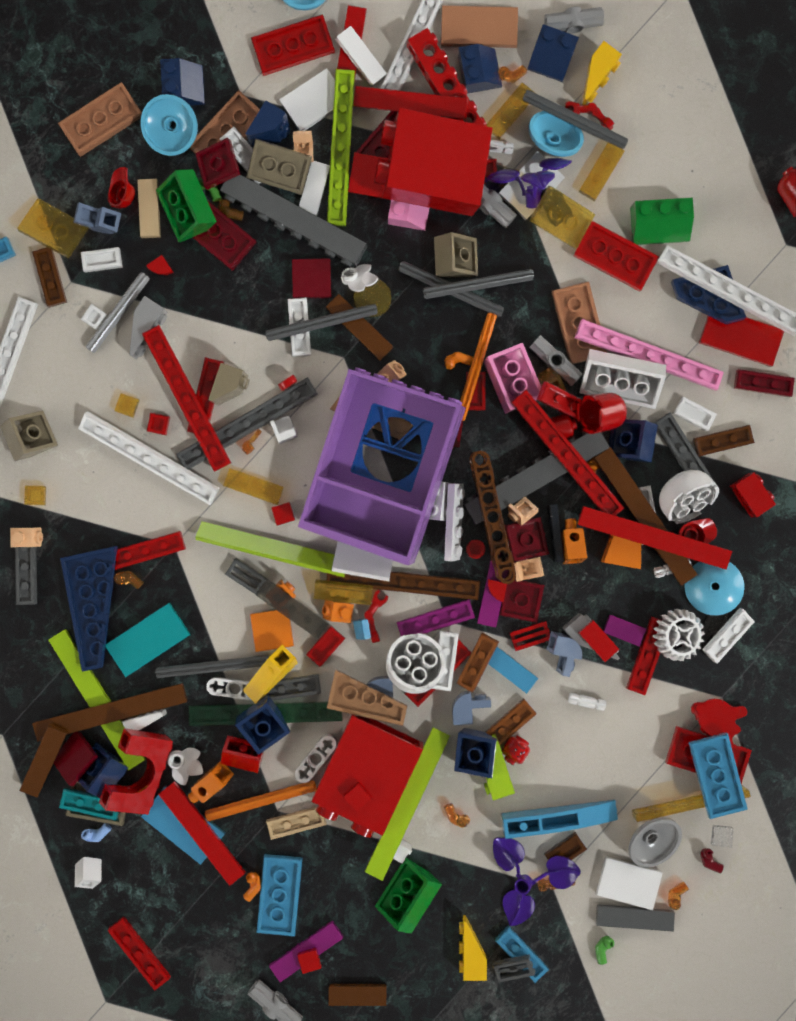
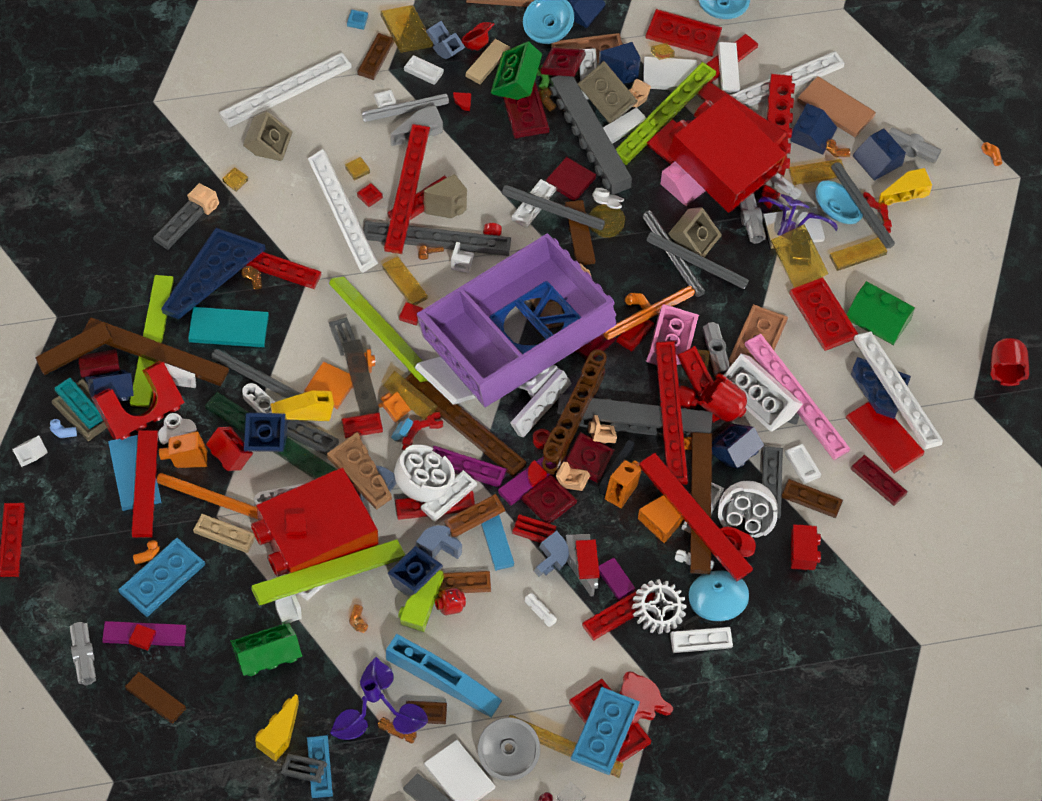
camera: 35 degrees right, 30 degrees down
(291, 81) = (662, 51): none -> clear yellow tile

